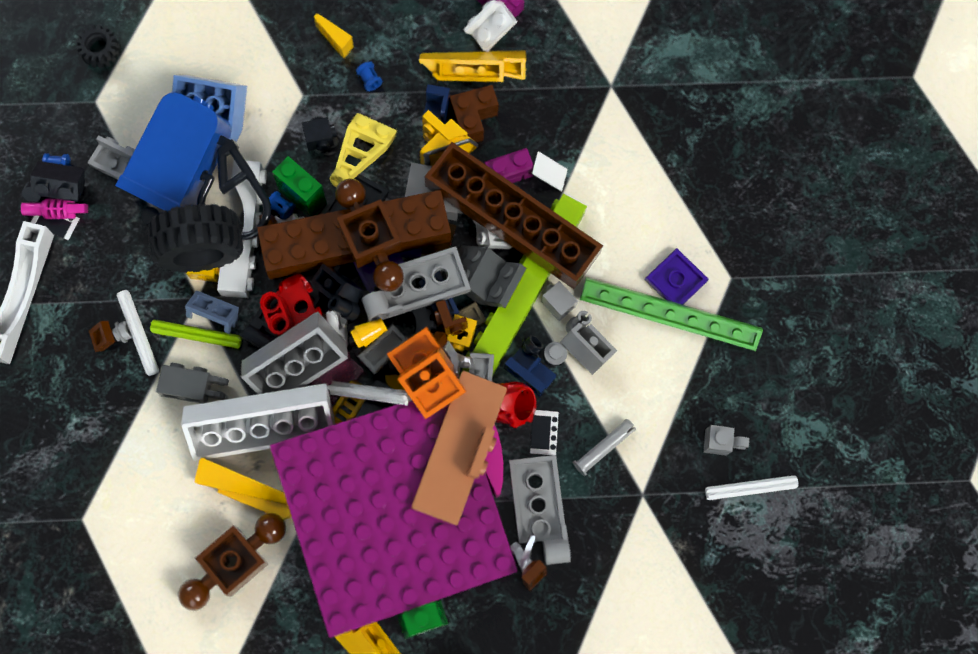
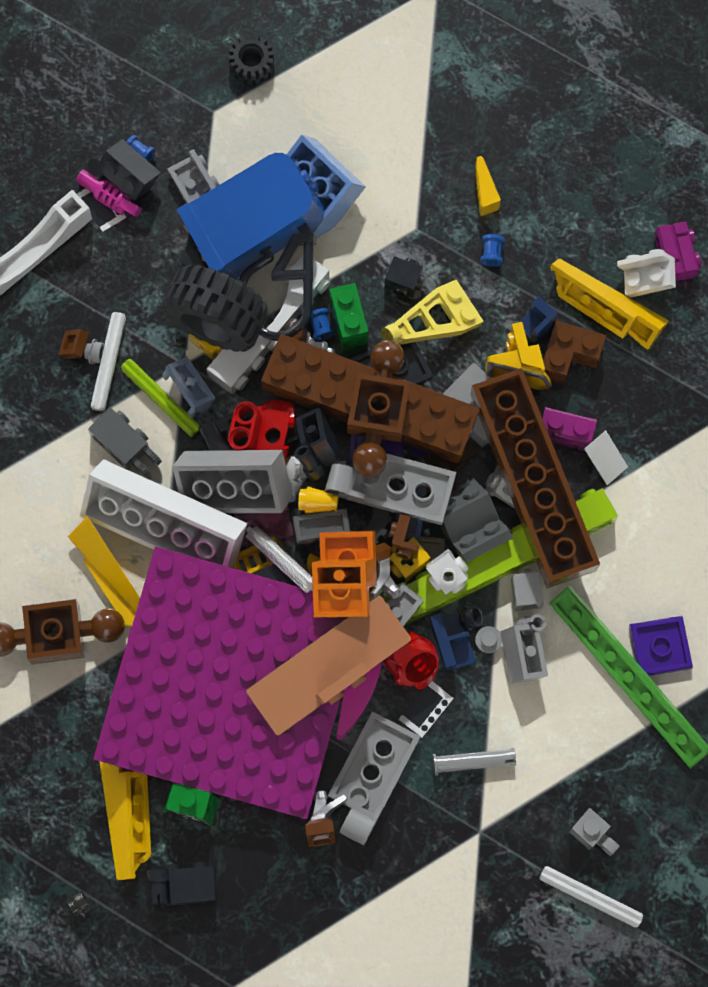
camera: 40 degrees right, 0 degrees up
(490, 321) = (448, 563): none -> white brick

